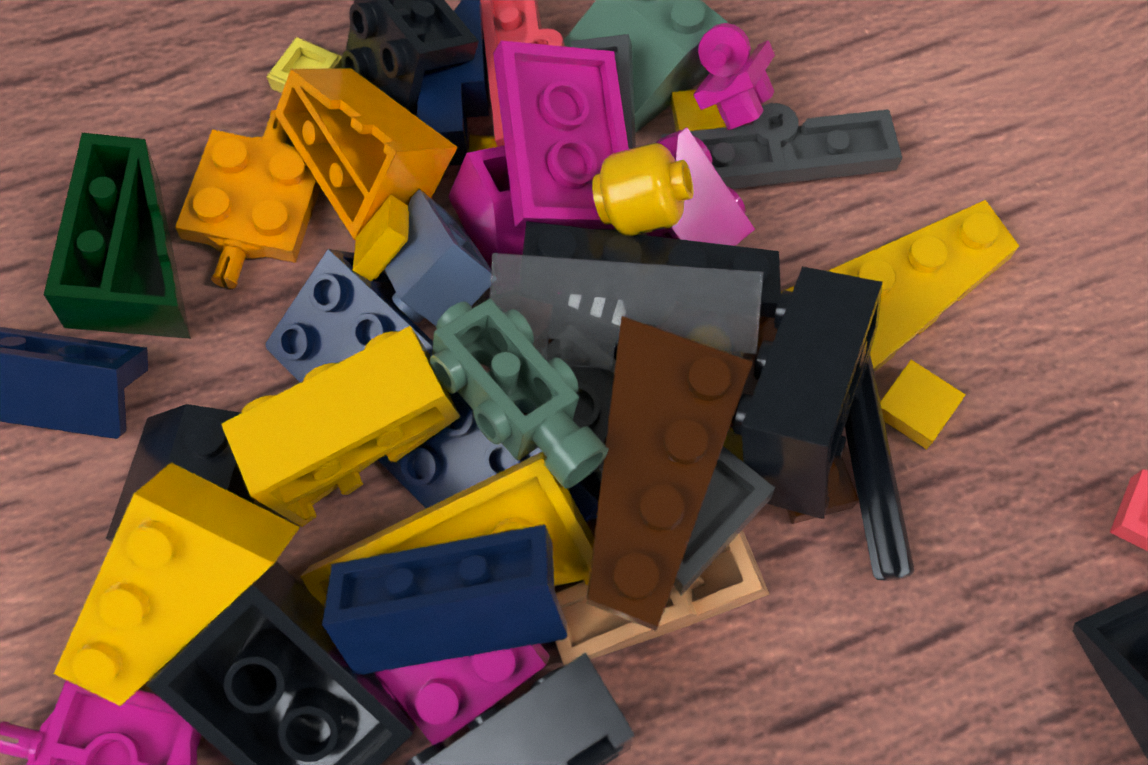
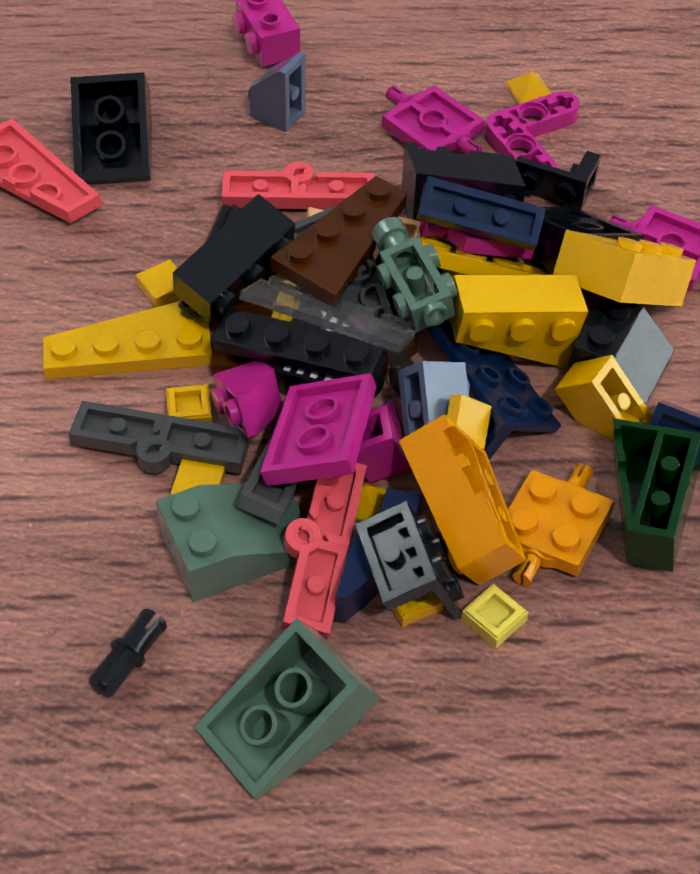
camera: 165 degrees left, 15 degrees down
(203, 372) = (599, 392): none -> yellow slope
(642, 189) = (288, 363): yellow head -> none
(735, 78) = (169, 468): dark pink hips -> none
(775, 217) = (189, 402): none -> yellow tile
(808, 677) = (292, 188): none -> coral hinge

